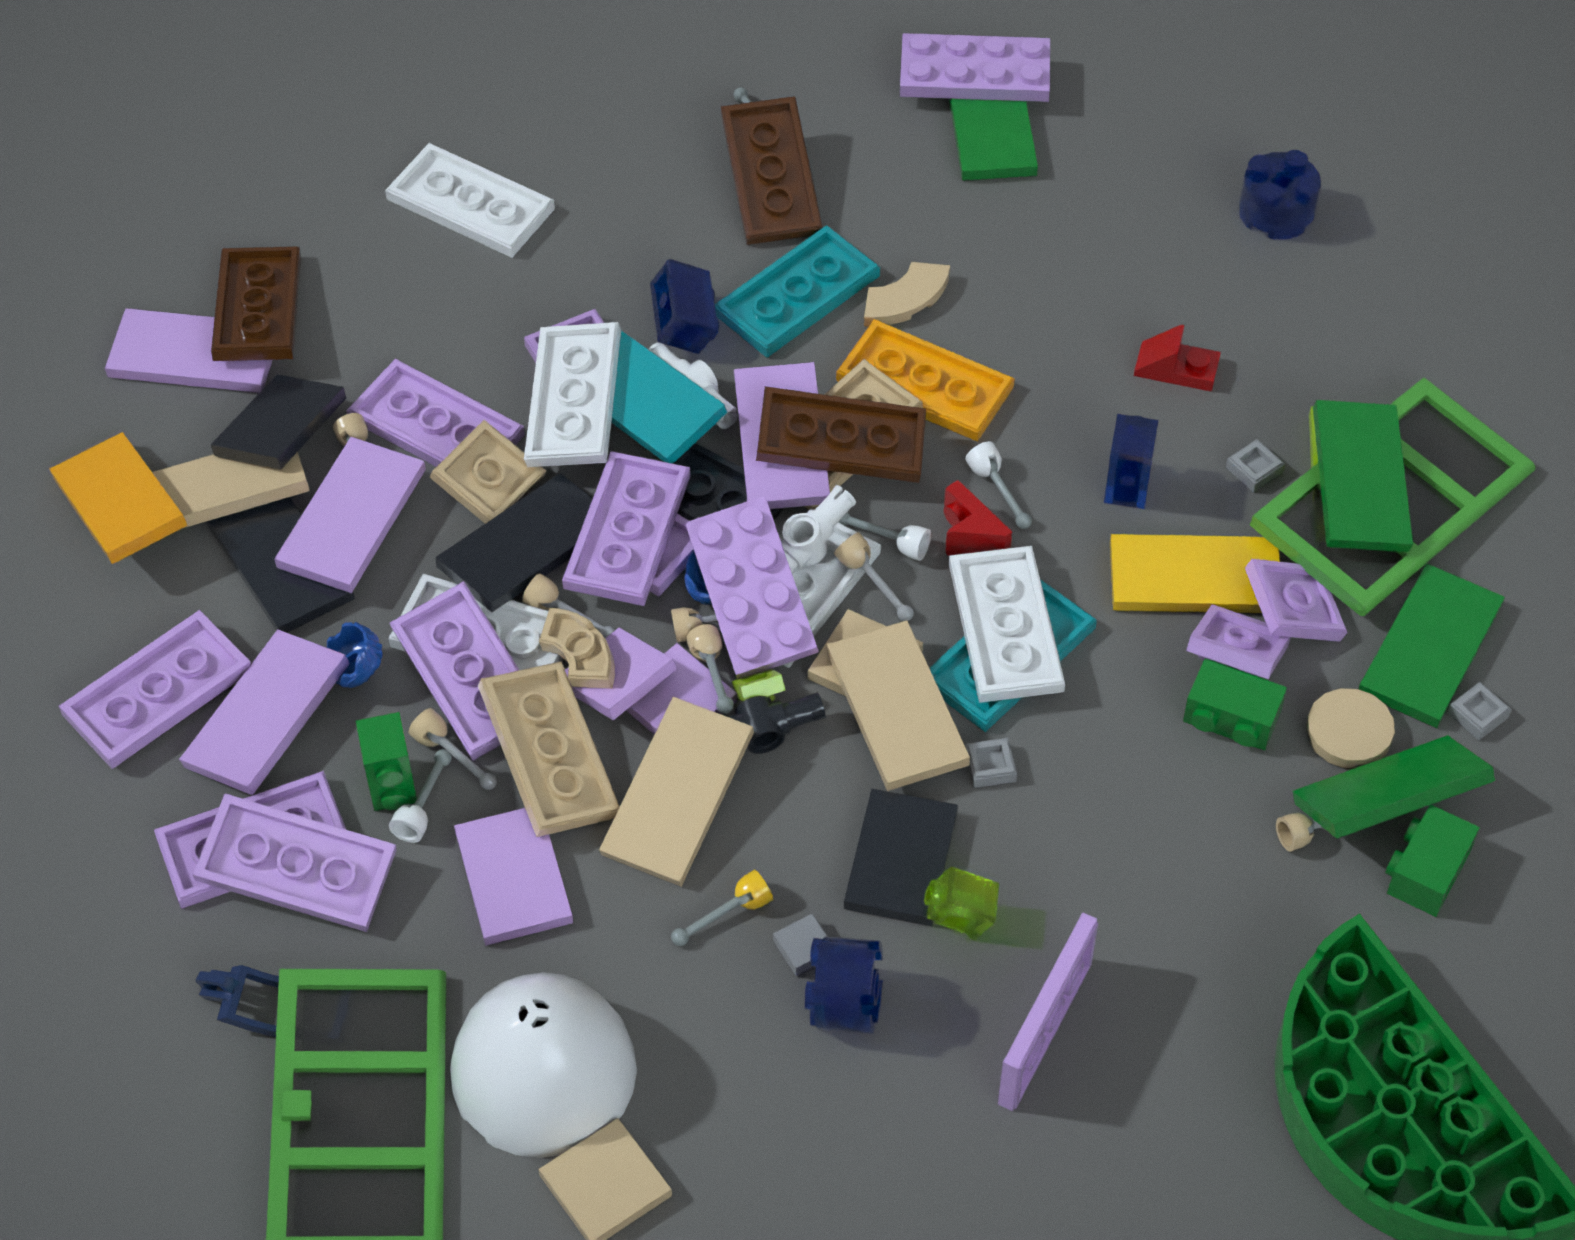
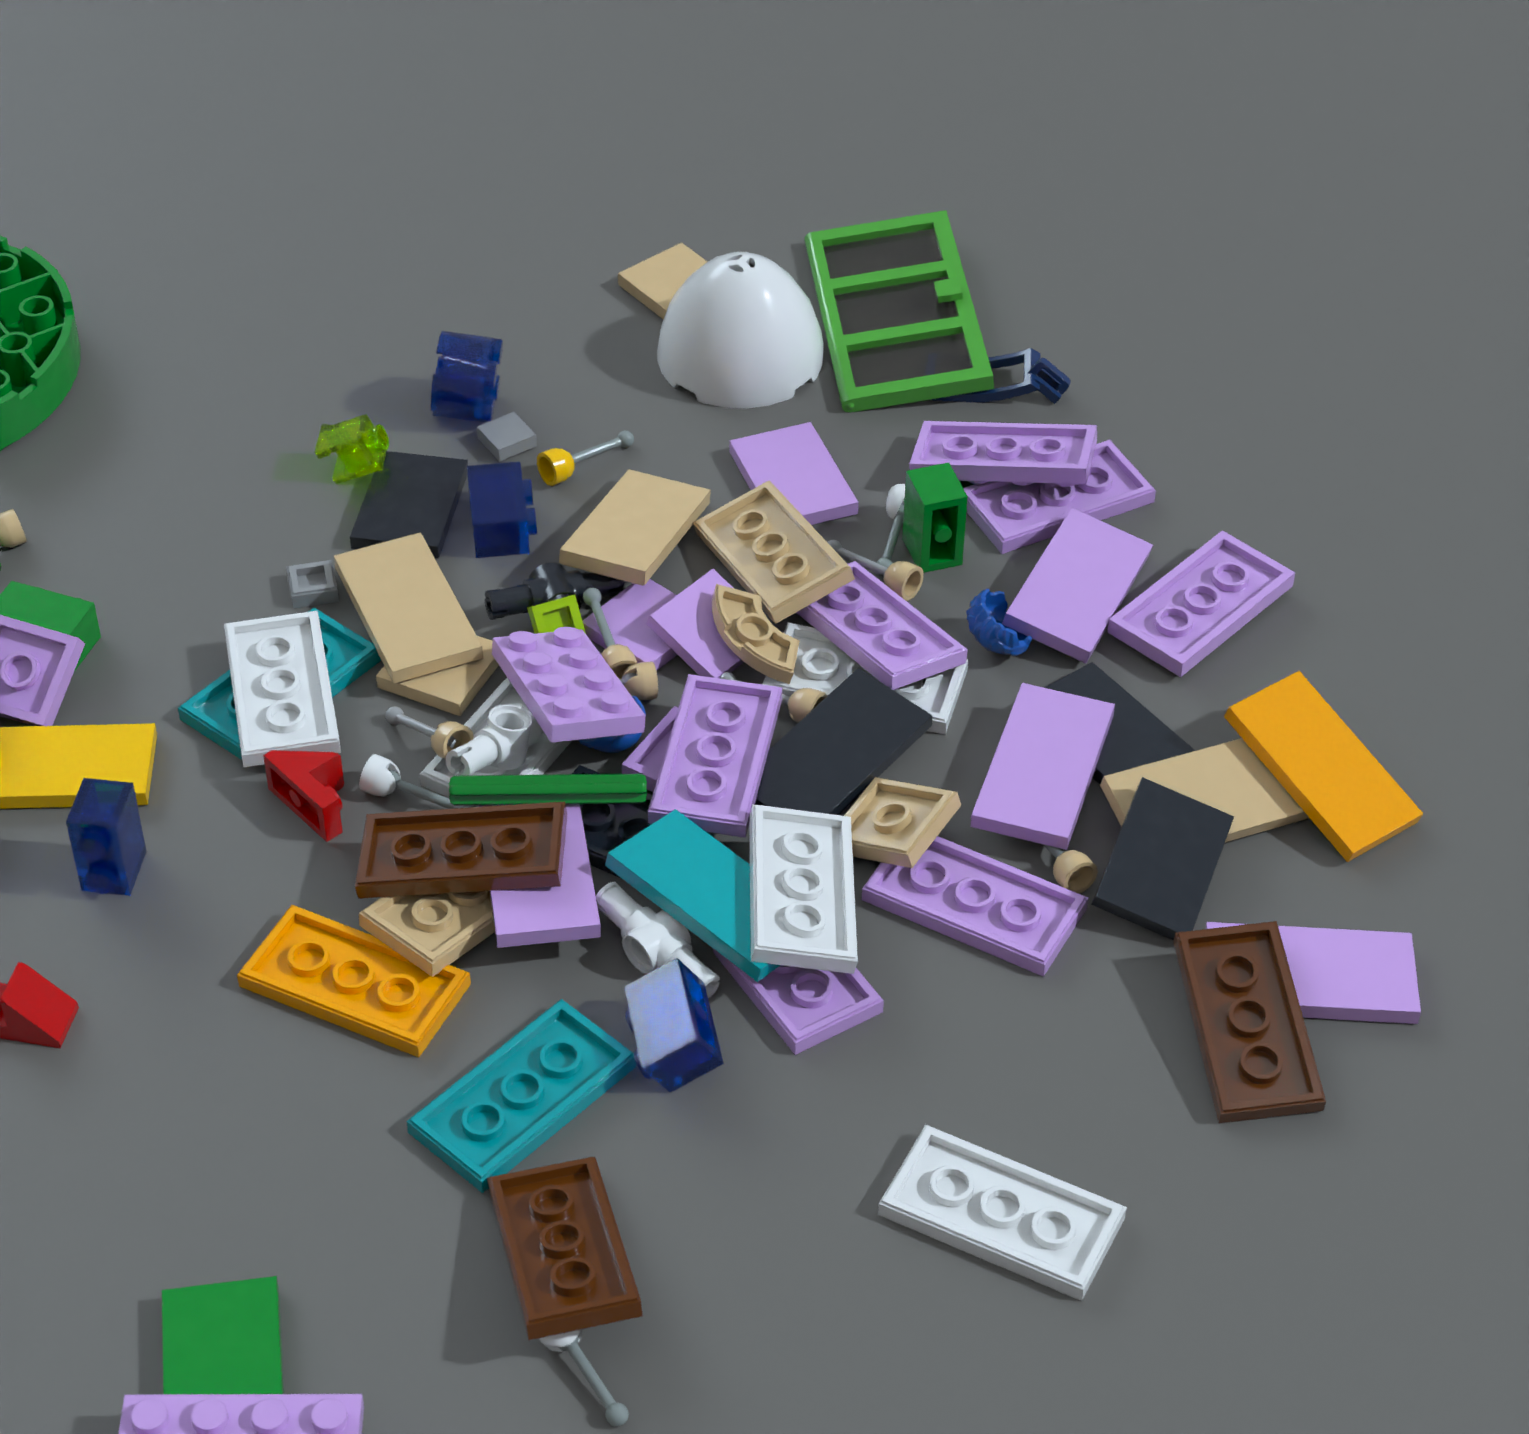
camera: 175 degrees right, 10 degrees down
(768, 482) = (547, 788): none -> green axle
(811, 826) = (499, 509): none -> clear blue brick
(910, 294) = (369, 1089): tan tile -> none
(986, 462) = (279, 862): hinge -> none
(1047, 1012) = (278, 363): lavender tile -> none

